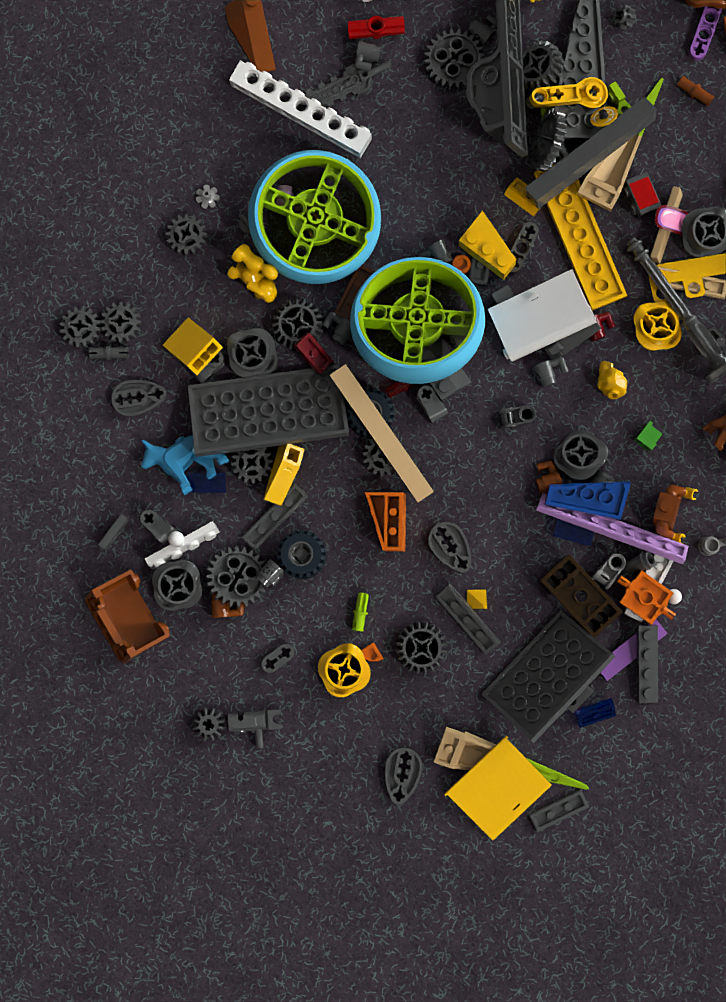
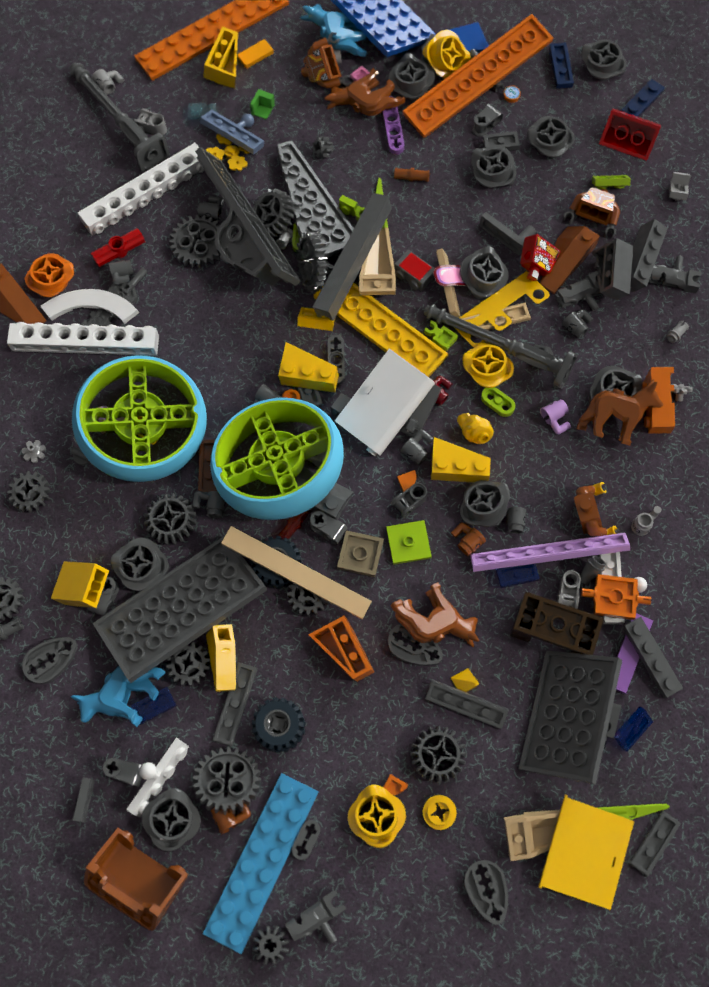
camera: 30 degrees left, 15 degrees down
(233, 656) = (260, 863): none -> dark azure plate
(255, 274) = (105, 495): yellow animal -> none
(270, 574) = (257, 759): dark grey piece -> none
(284, 18) = (49, 275): none -> orange piece
(313, 353) = (196, 534): dark red plate -> none
(326, 70) = (90, 299): none -> white tile
(360, 612) = (362, 751): lime axle -> none
(403, 701) = (448, 817): none -> yellow gear
(447, 442) = (360, 553): none -> dark tan plate
(483, 539) = (441, 621): none -> dark orange animal
(495, 453) = (408, 542): none -> lime plate
(524, 397) = (407, 480): none -> orange tile
(573, 94) = (311, 219): yellow beam -> none
(577, 406) = (457, 463): none -> yellow wedge
(594, 498) = (518, 533): blue wing -> none
(604, 116) = (348, 224): piece -> none
(631, 276) = (442, 337): none -> lime plate
(648, 437) = (534, 460): bright green panel -> none
(649, 364) = (500, 400): none -> lime plate
(692, 402) = (556, 411): none -> lavender piece

